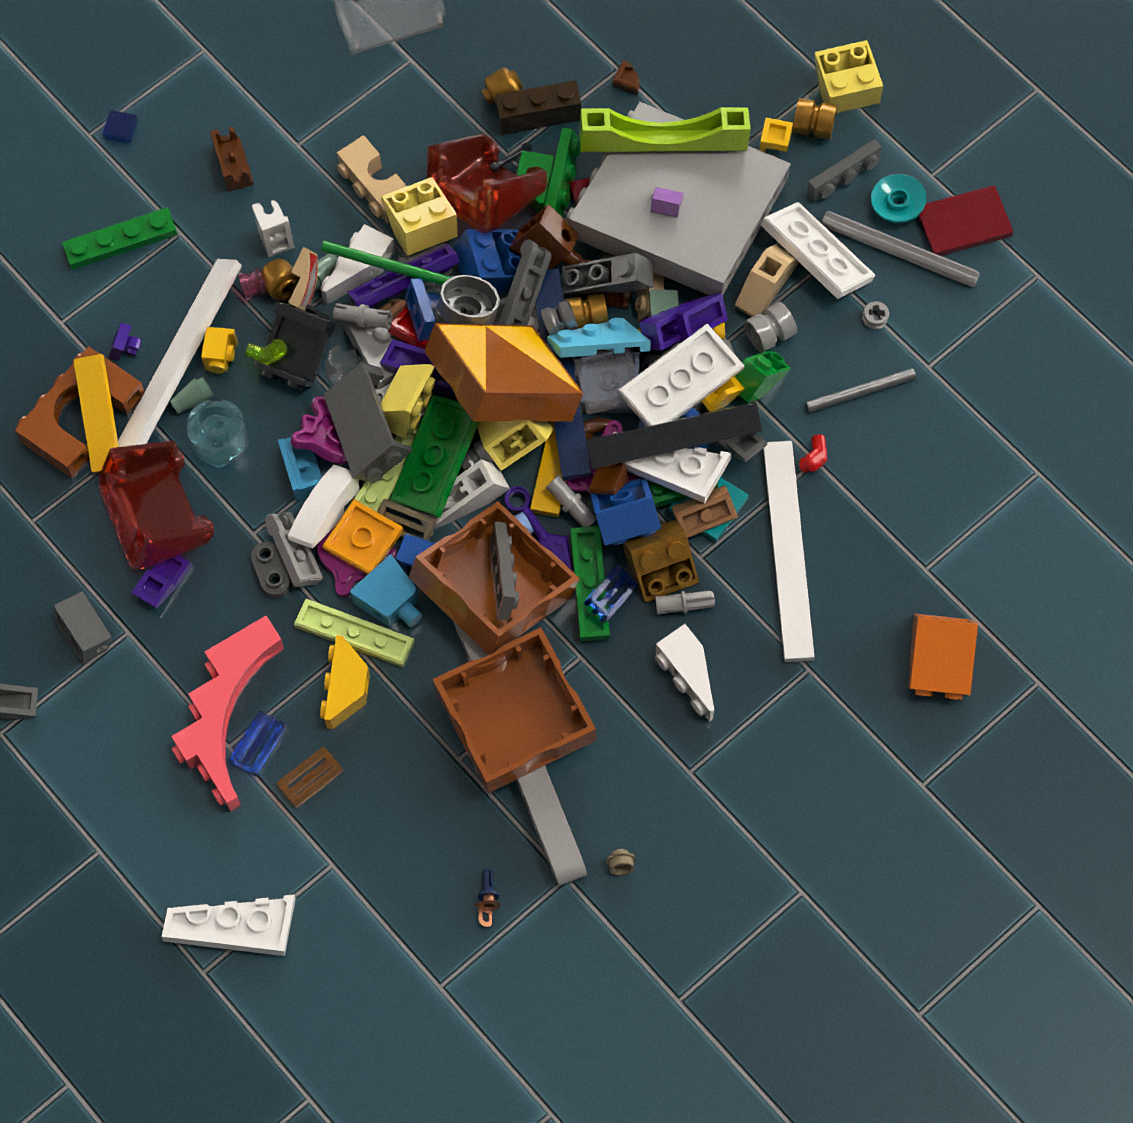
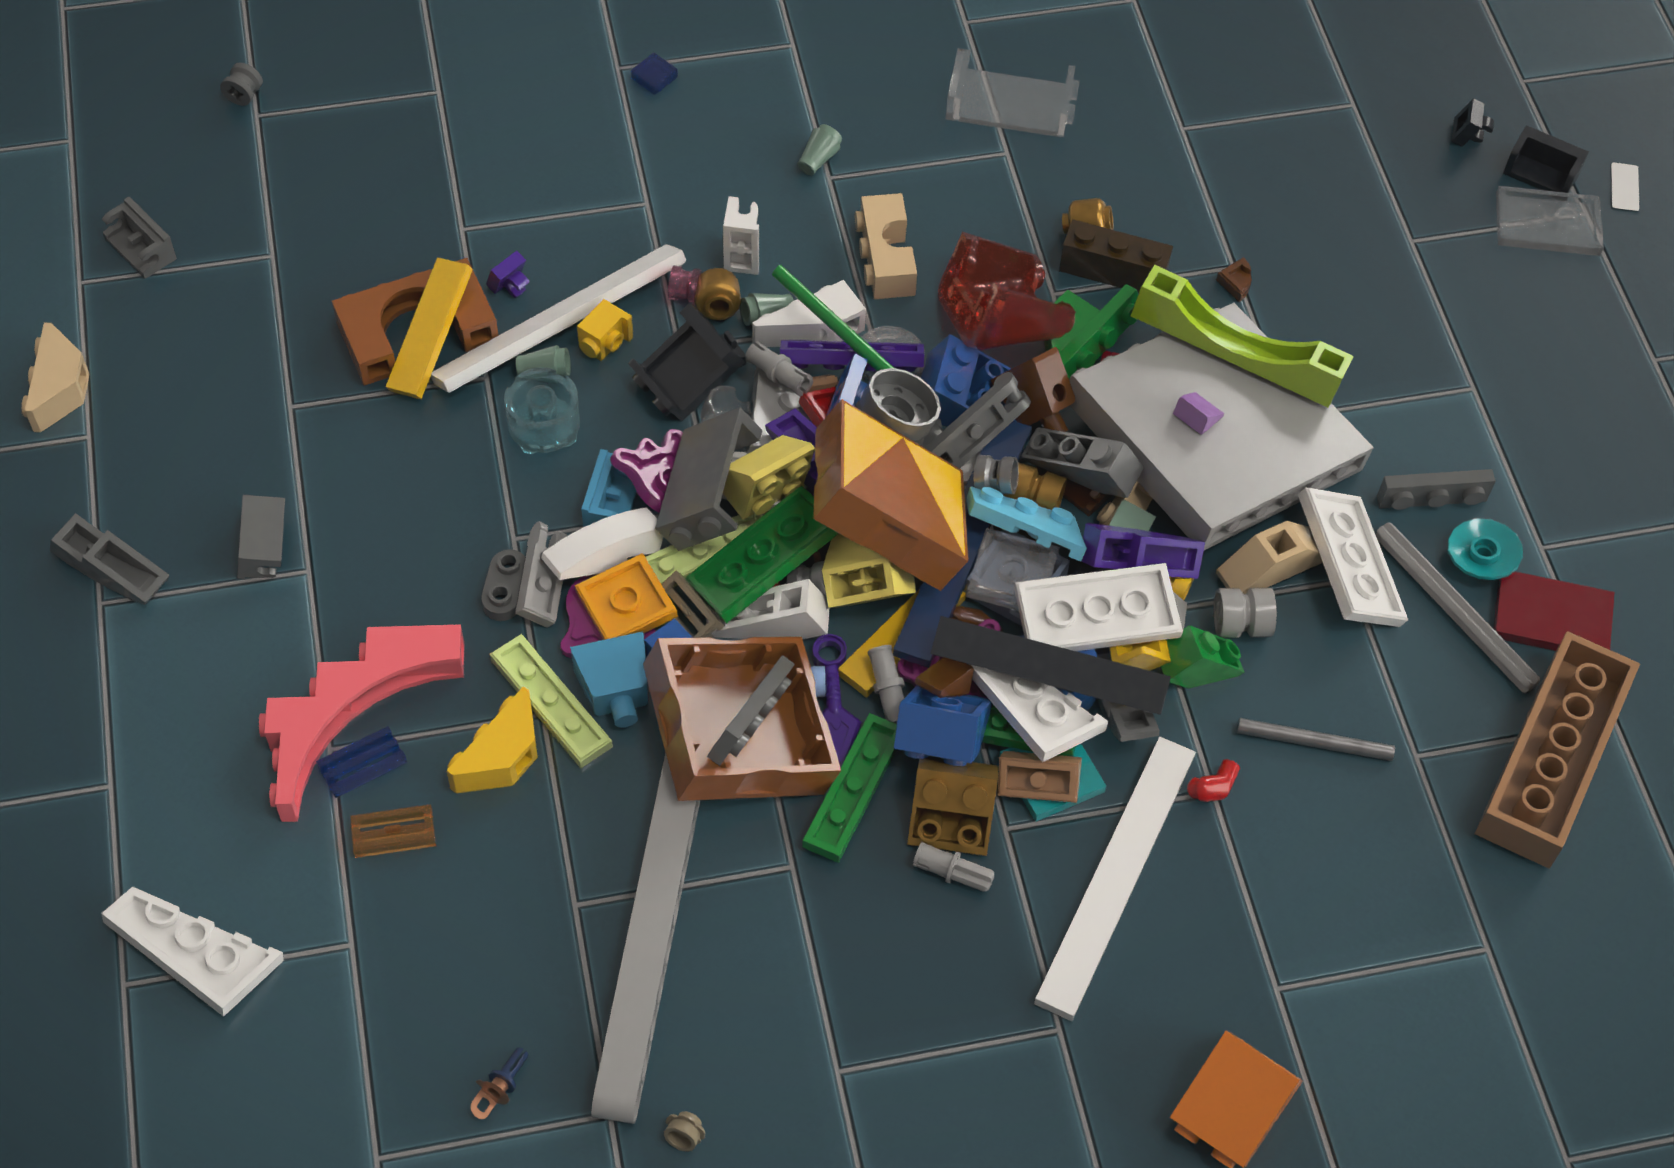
camera: 25 degrees right, 10 degrees down
(119, 238) = (579, 177): green plate -> none
(150, 503) = (423, 446): clear red windscreen -> none
(162, 580) = (376, 536): dark purple slope -> none
(232, 160) = (746, 156): reddish brown hinge -> none
(268, 354) = (651, 359): clear neon green arm -> none
(279, 126) = (821, 146): none -> sand green cone
(307, 269) = (748, 290): tan slope -> none
(420, 216) = (910, 301): light yellow slope -> none
(495, 166) = (1049, 294): black hinge -> none
(514, 710) = (665, 877): dark orange tile -> none
(598, 606) = (842, 815): tile -> none
(686, 661) = (912, 934): white slope -> none
(775, 135) = (1374, 411): yellow panel -> none
(814, 118) = (1433, 418): pearl gold wheel -> none
(848, 76) = (1497, 393): light yellow slope -> none
(882, 311) = (1372, 662): light grey bush -> none
(1016, 316) = (1557, 750): none -> medium nougat brick

